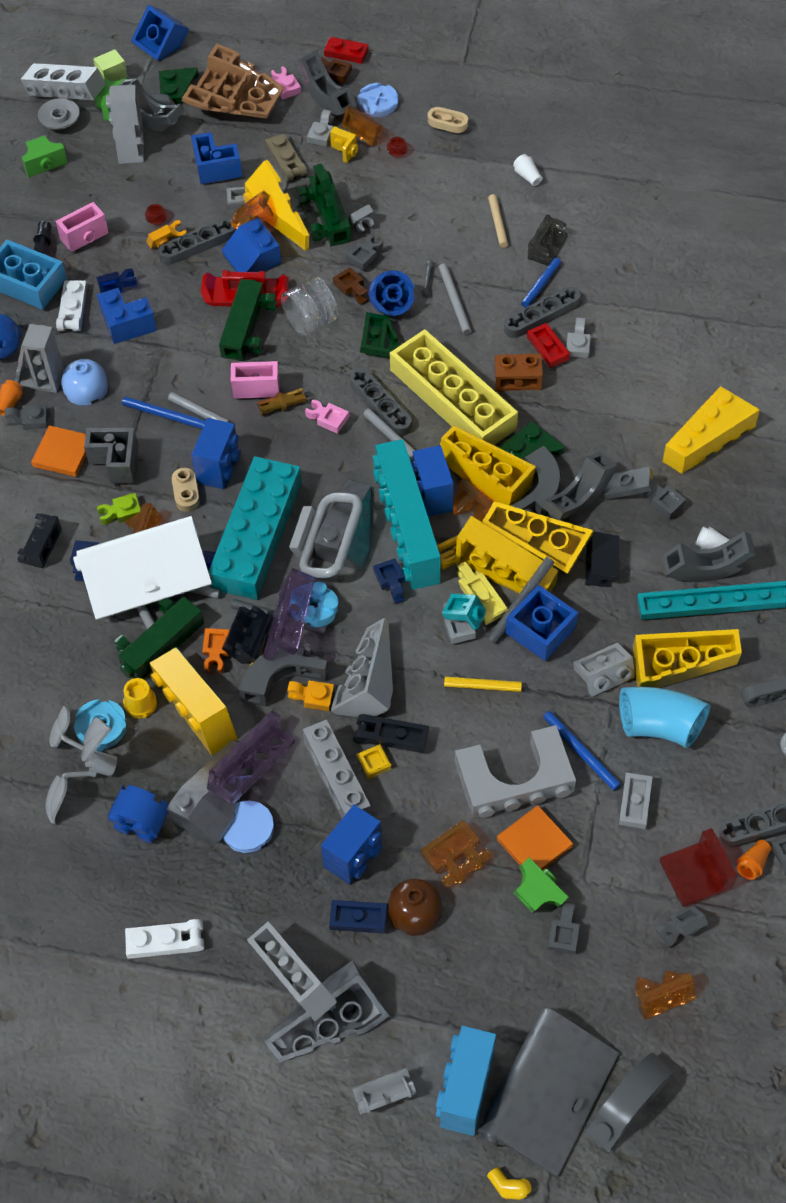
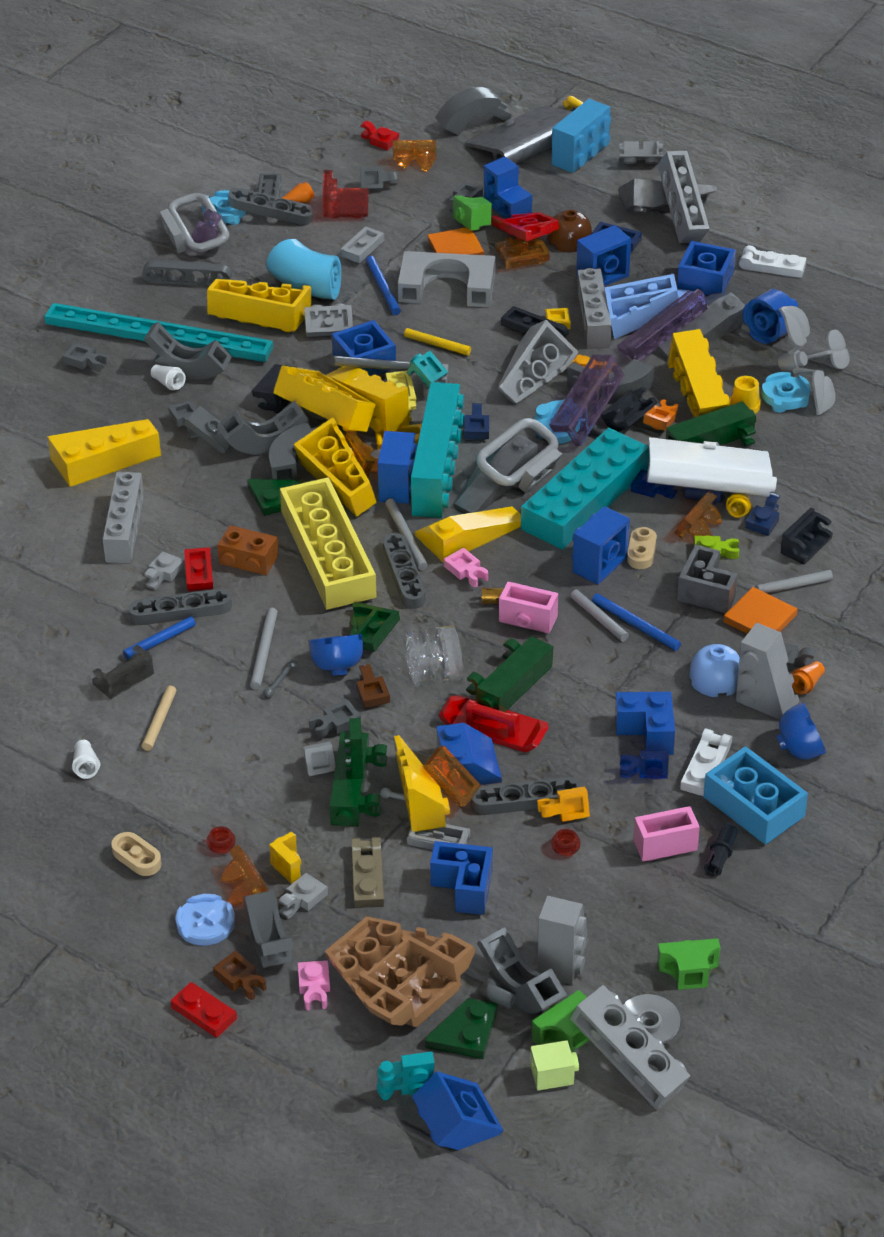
camera: 160 degrees left, 15 degrees down
(41, 494) = (796, 582): none -> light grey bar
(190, 32) = (404, 1075): none -> teal plate
(231, 874) = (706, 268): none -> blue brick
(286, 784) = (638, 302): none -> light blue wedge
(343, 456) = (468, 530): none -> yellow wedge
(463, 880) = (527, 225): none -> red wing
(512, 937) = (503, 190): none -> blue brick
(641, 369) = (123, 517): none -> light grey brick
(723, 1022) = (379, 137): none -> red plate

